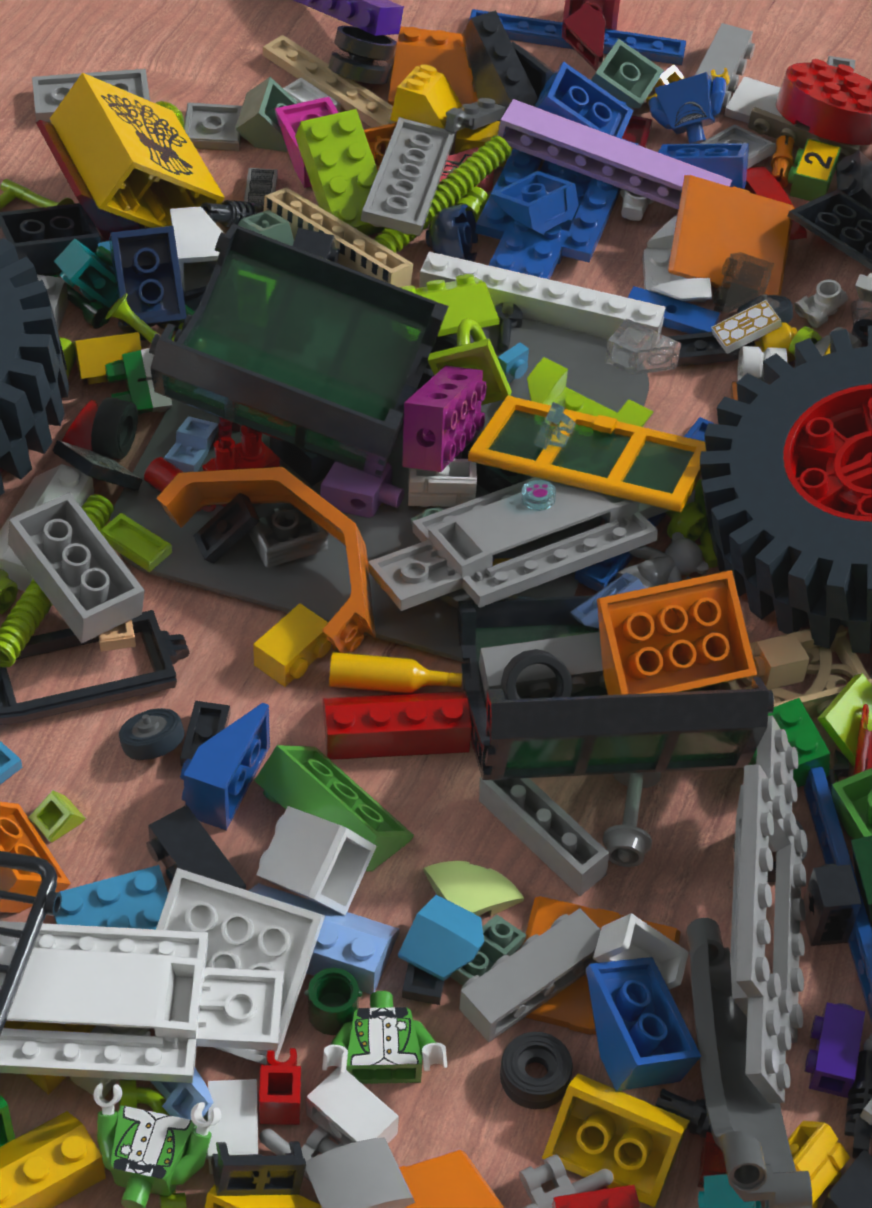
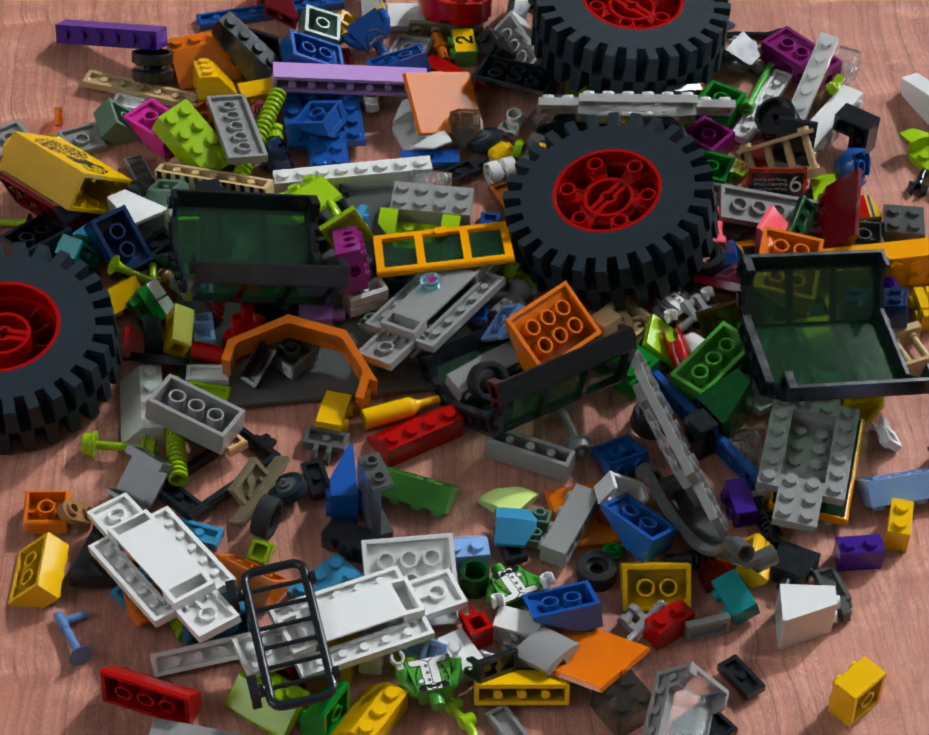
camera: 25 degrees left, 5 degrees down
(87, 766) = (266, 516): none -> black tyre
(102, 707) = (252, 484): none -> dark tan bracket
(149, 513) = (207, 374): none -> white tile
(150, 434) = (178, 330): none -> yellow brick
(201, 83) = (58, 116): none -> clear orange tile
(246, 817) = (372, 479): none -> dark grey panel
(257, 680) = (325, 440): none -> dark grey hinge
(316, 859) = (423, 510): white slope -> none
(436, 1116) = (566, 606): none -> blue slope
(474, 115) = (248, 79): dark grey hinge -> none
(552, 425) = (415, 241): clear light blue tile -> none
(580, 1055) = (615, 550): none -> green plate
(616, 372) = (429, 202): none -> light grey brick
(684, 888) = (620, 455): none -> blue plate
(746, 326) = (481, 151): white tile -> none

